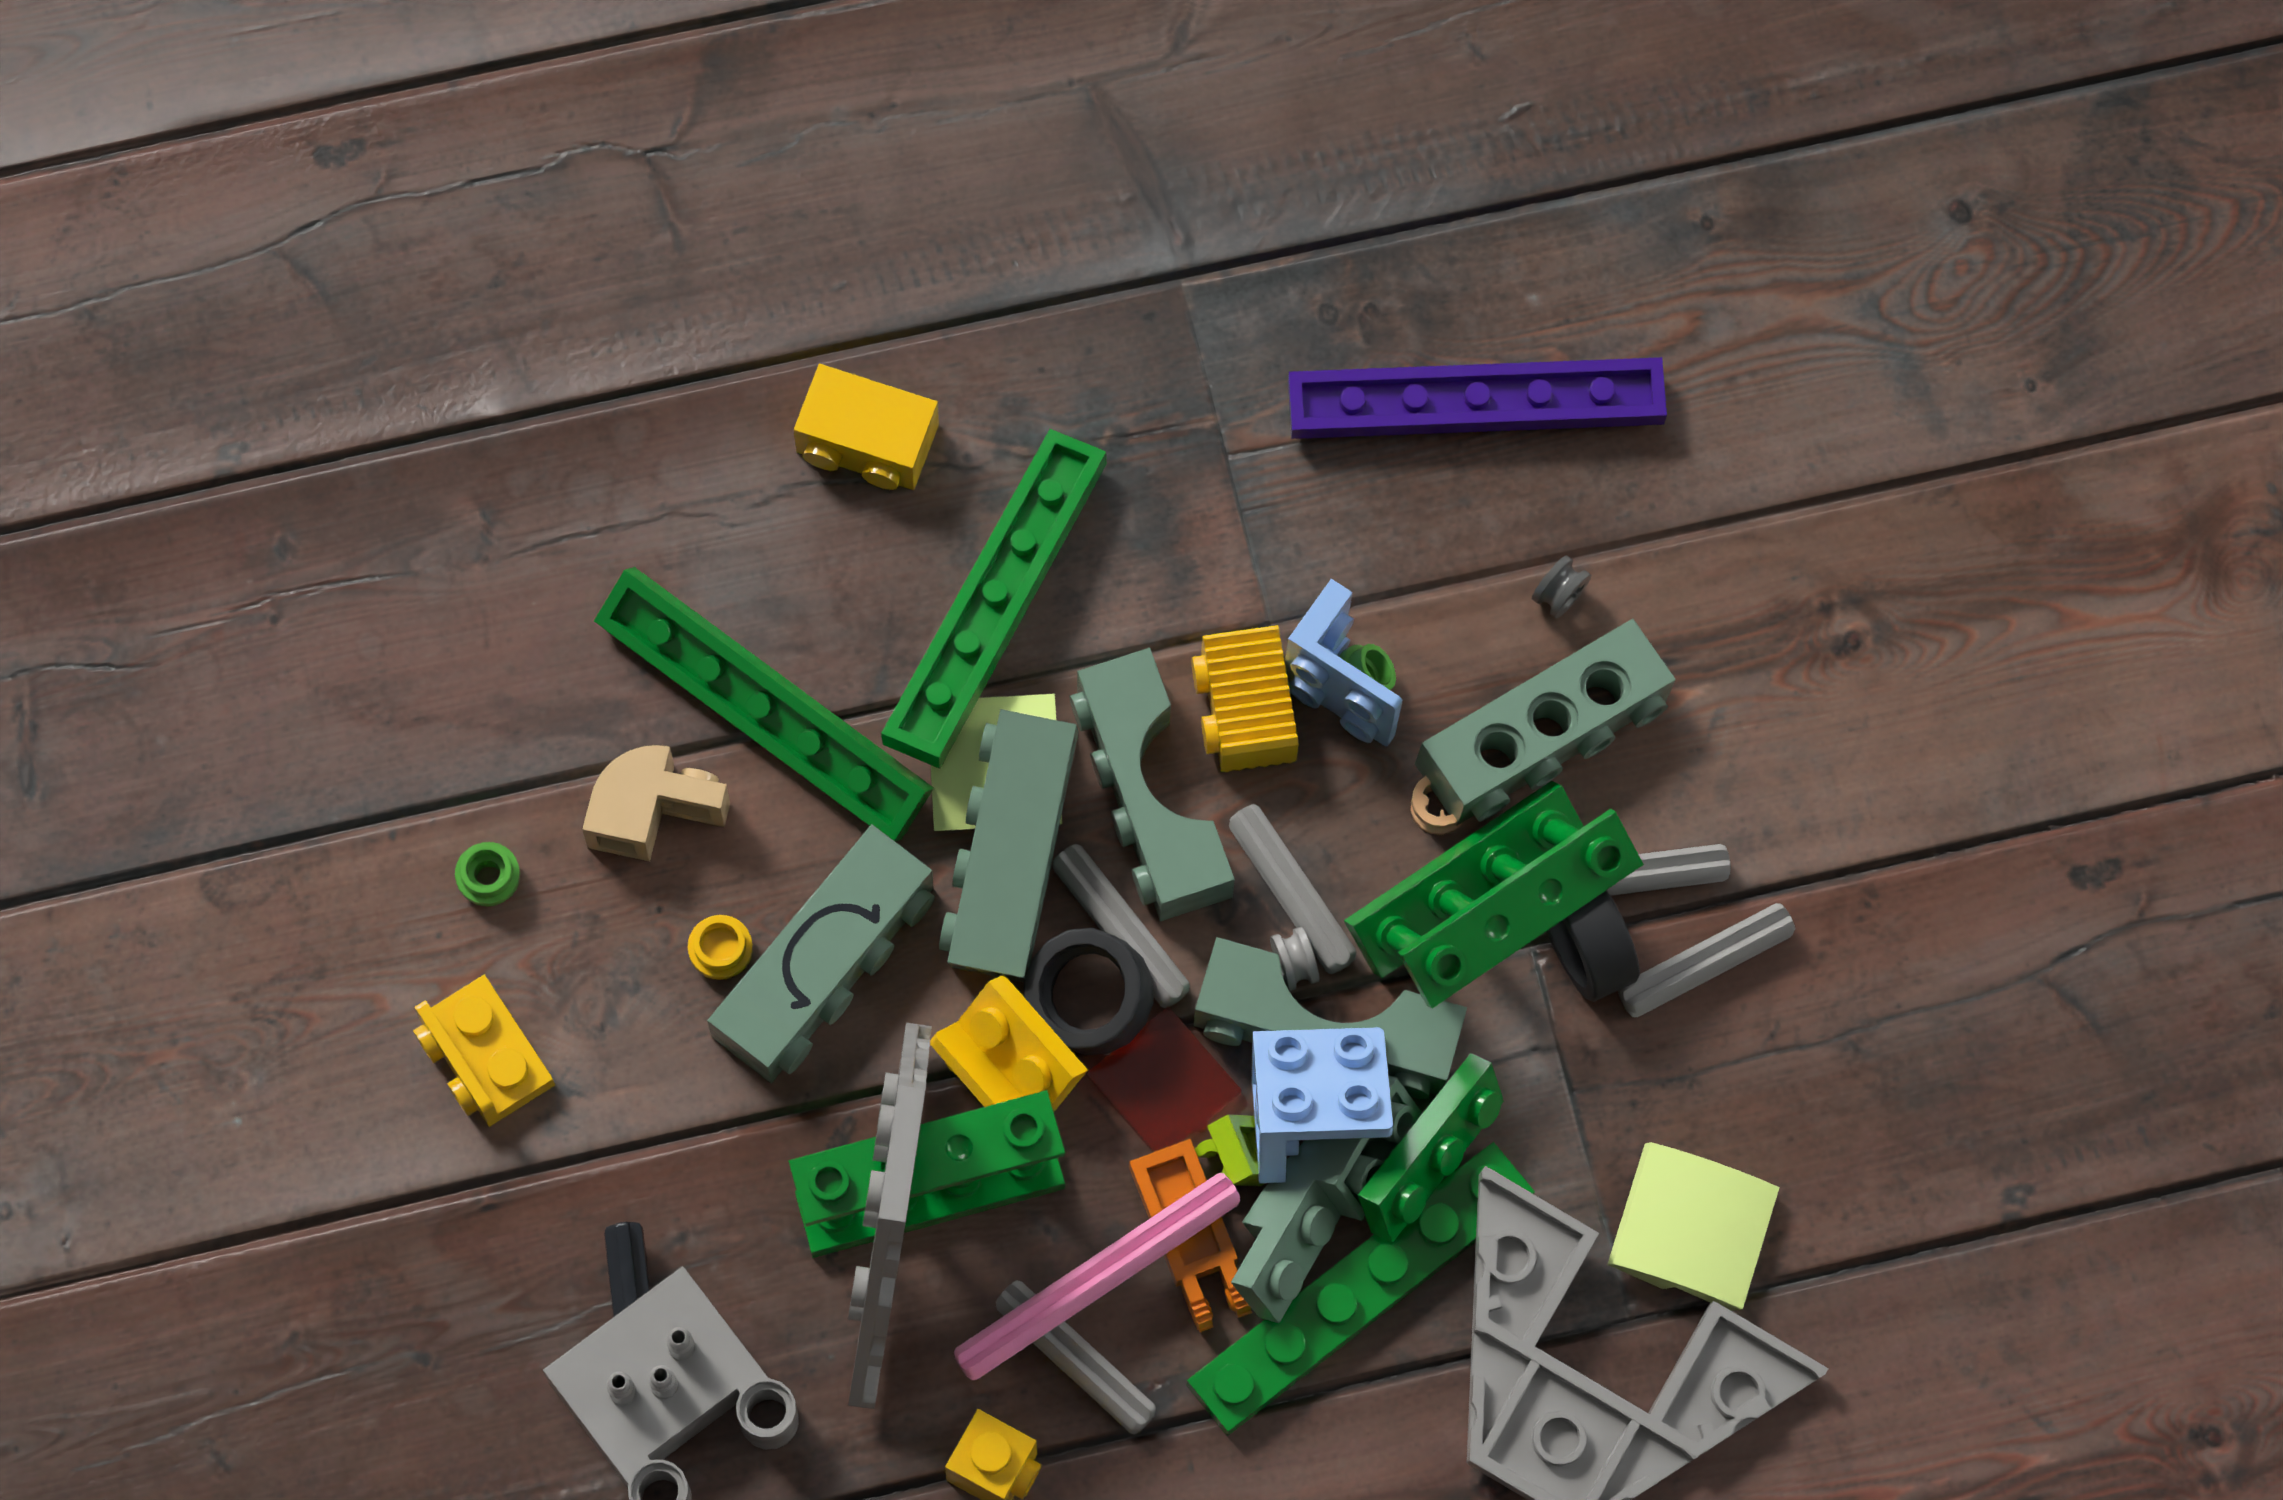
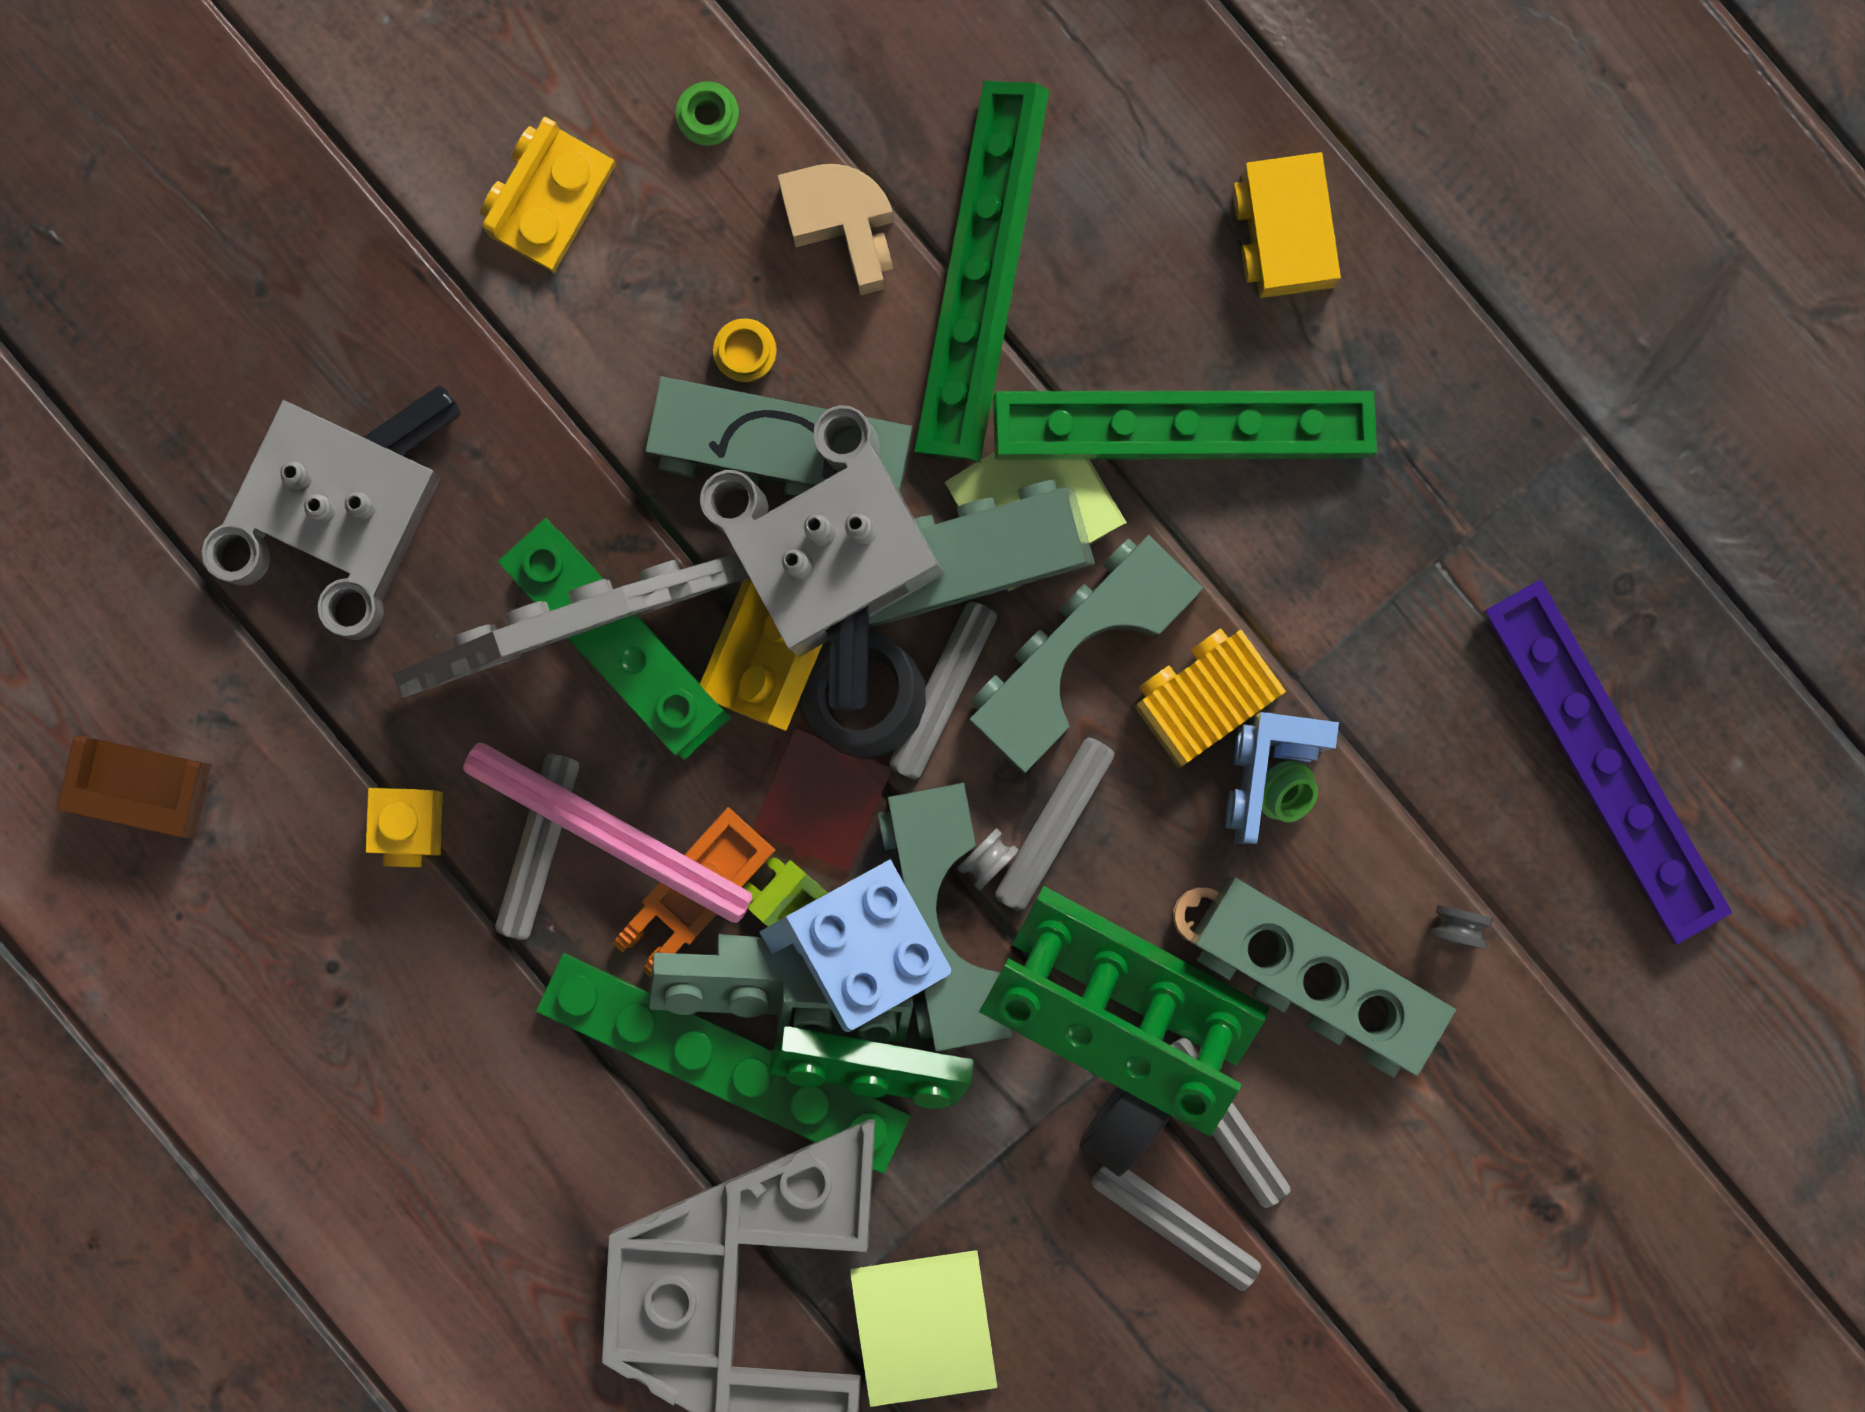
camera: 65 degrees right, 15 degrees up
(950, 939) = (829, 553): none -> light grey piece

